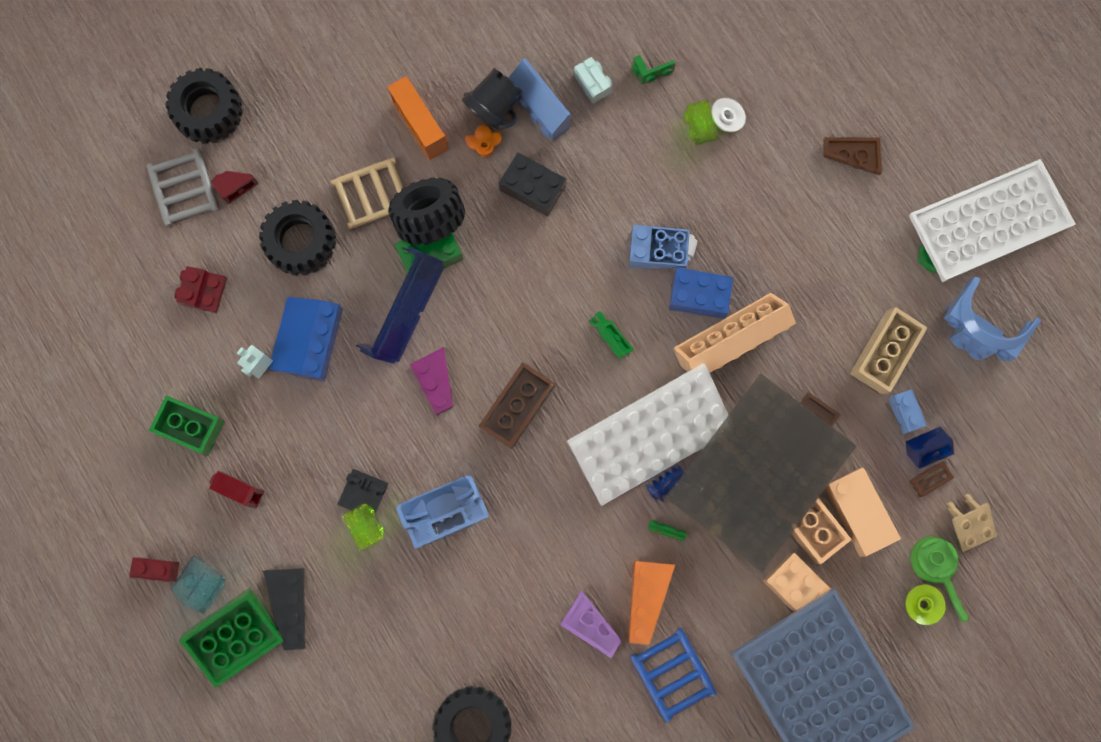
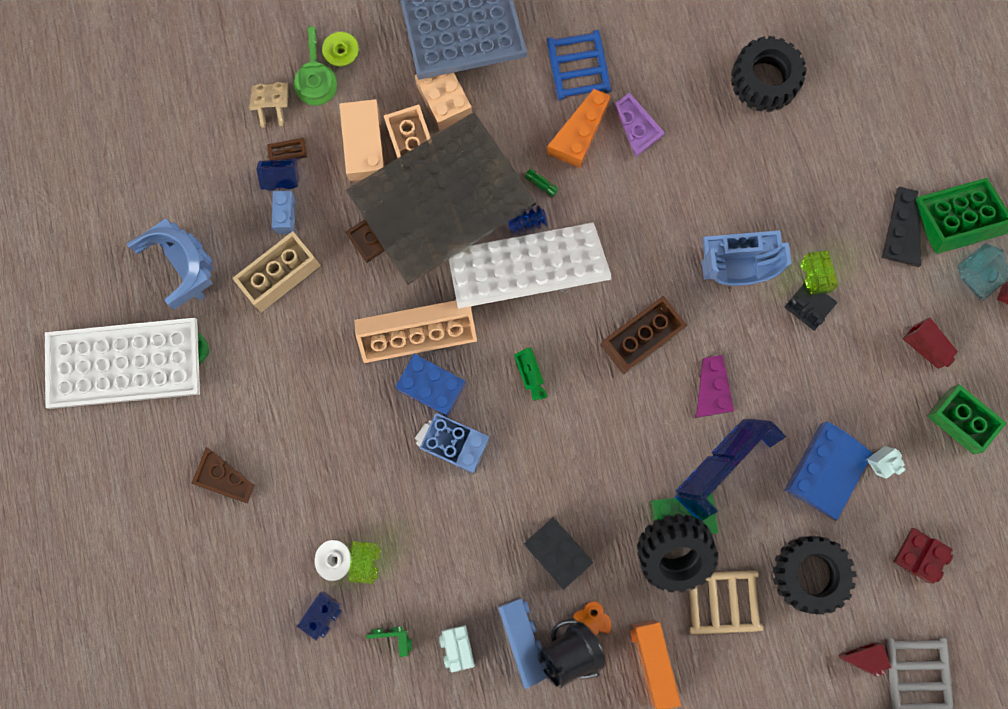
camera: 160 degrees left, 0 degrees up
(721, 67) = (320, 615): none -> clear blue brick

